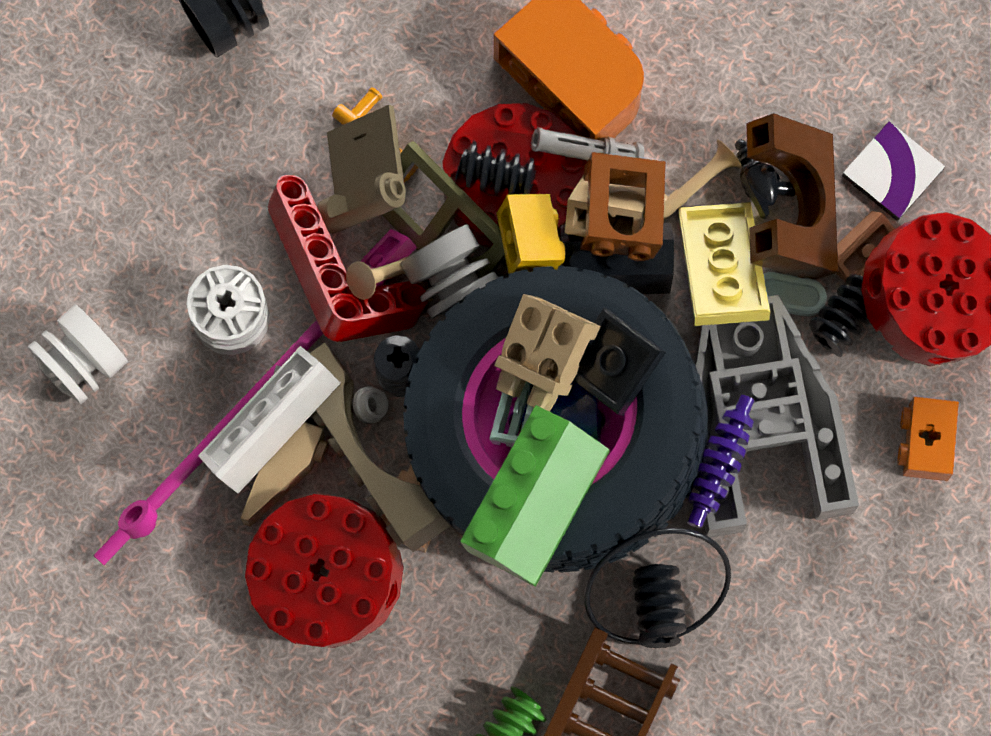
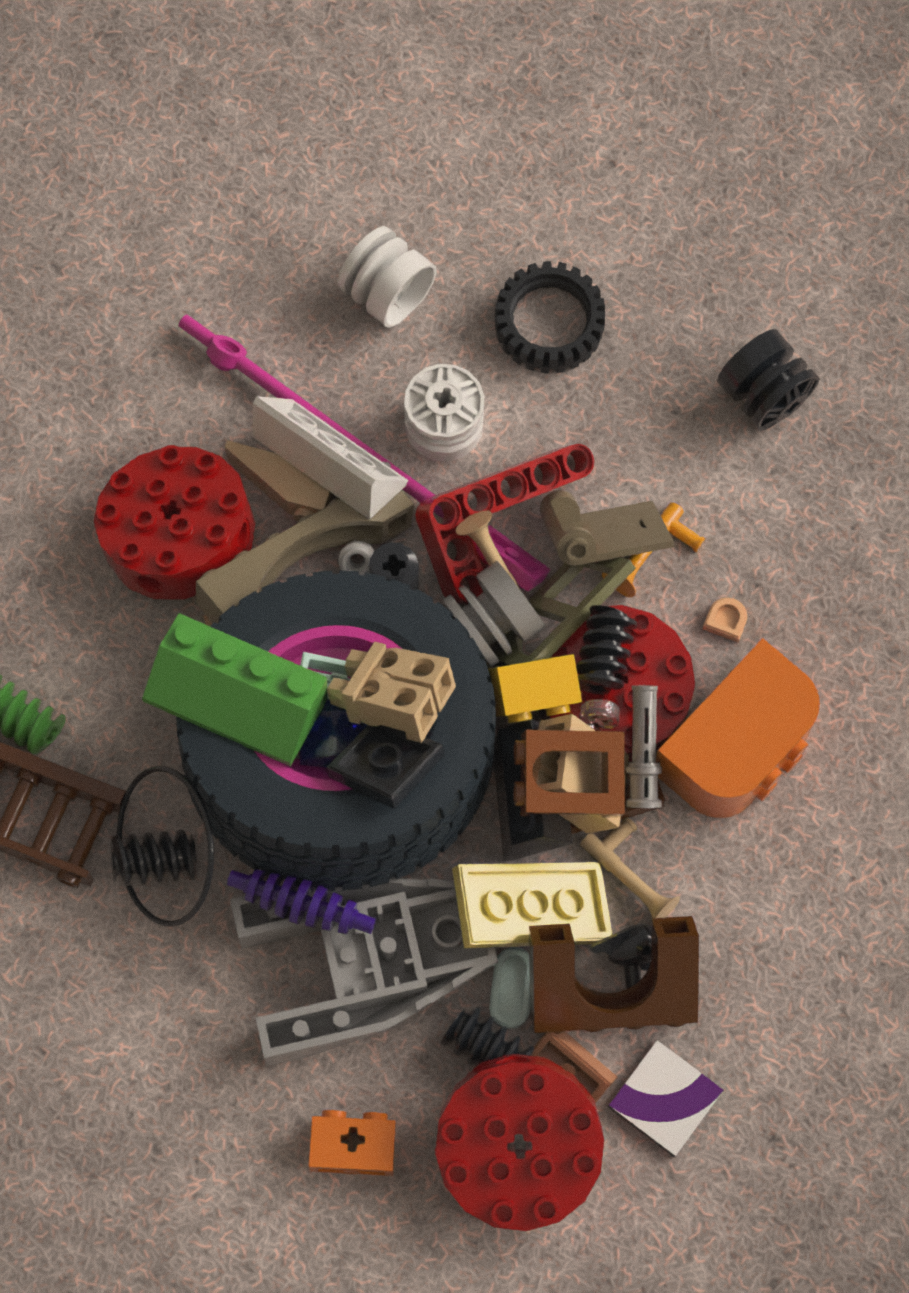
camera: 85 degrees right, 5 degrees down
(116, 168) = (550, 277): none -> black tyre
(451, 76) = (726, 619): none -> light nougat tile
(557, 183) = (600, 714): none -> clear tile

